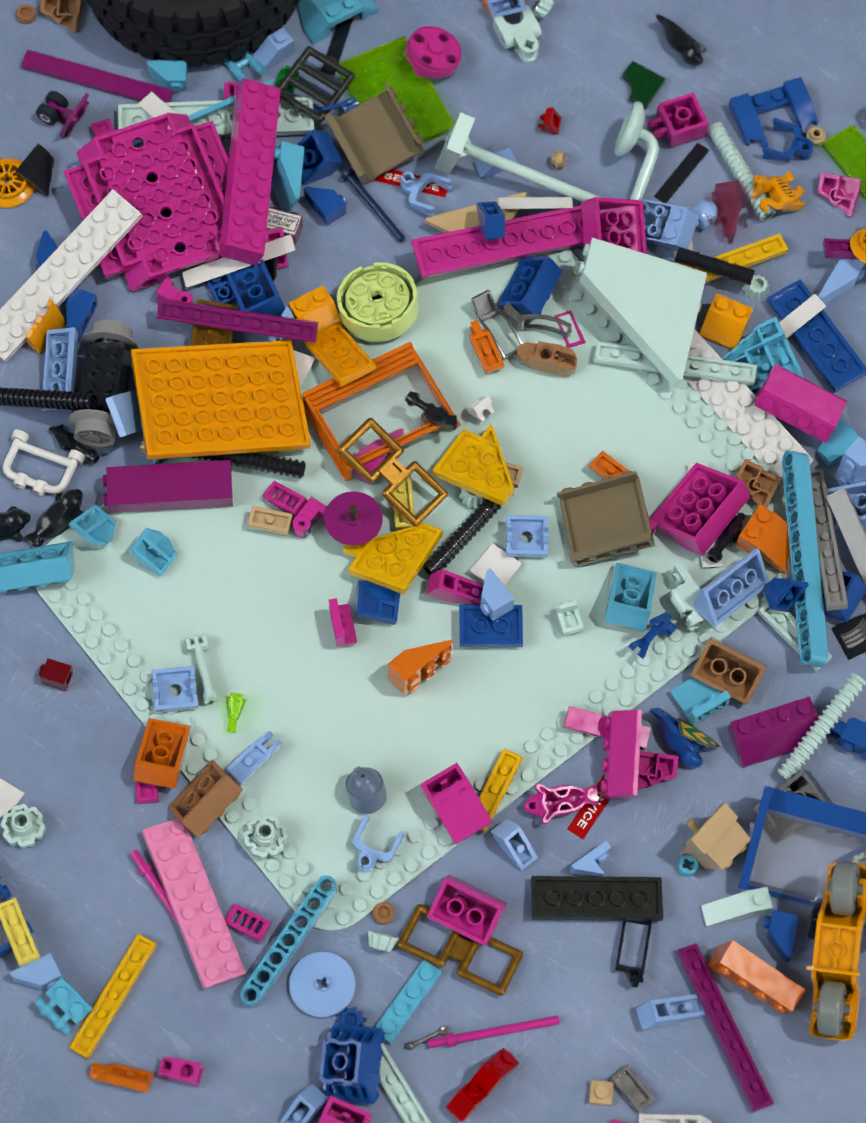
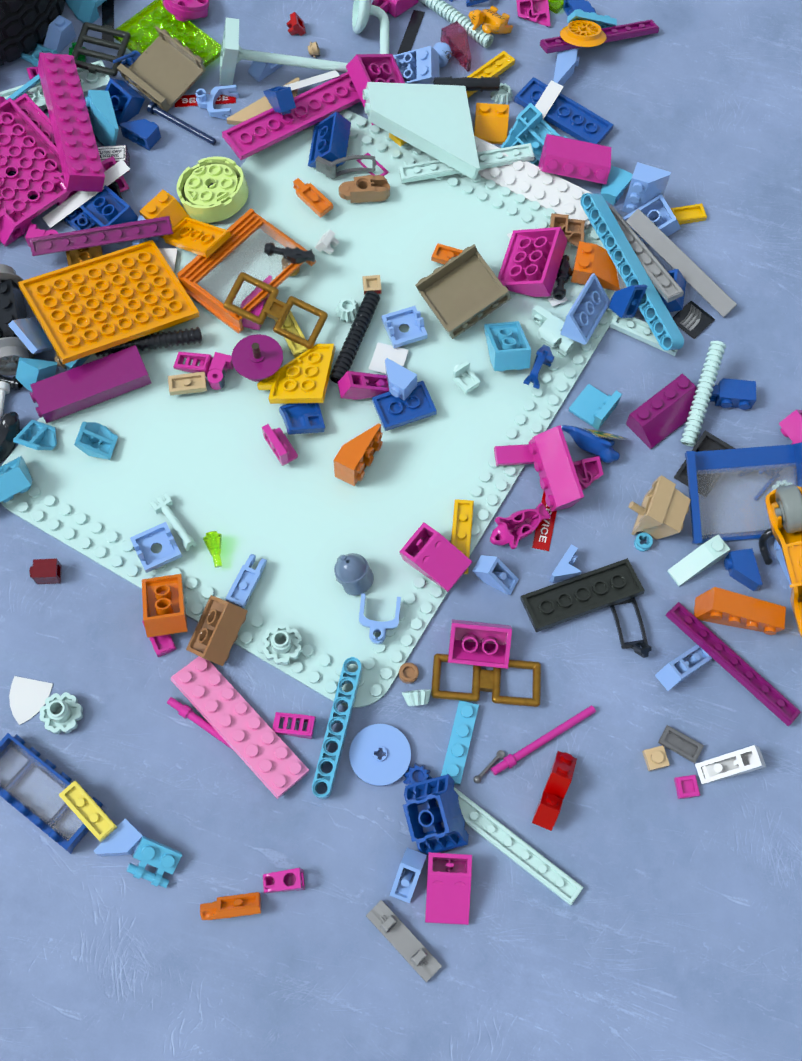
camera: 20 degrees left, 0 degrees up
(113, 996) = (196, 837): yellow tile -> none
(115, 453) = (34, 370): none -> medium azure slope
(477, 466) = (343, 285): yellow wing -> none
(486, 308) = (302, 169): flat silver piece -> none
(729, 670) = (609, 374): medium nougat slope -> none

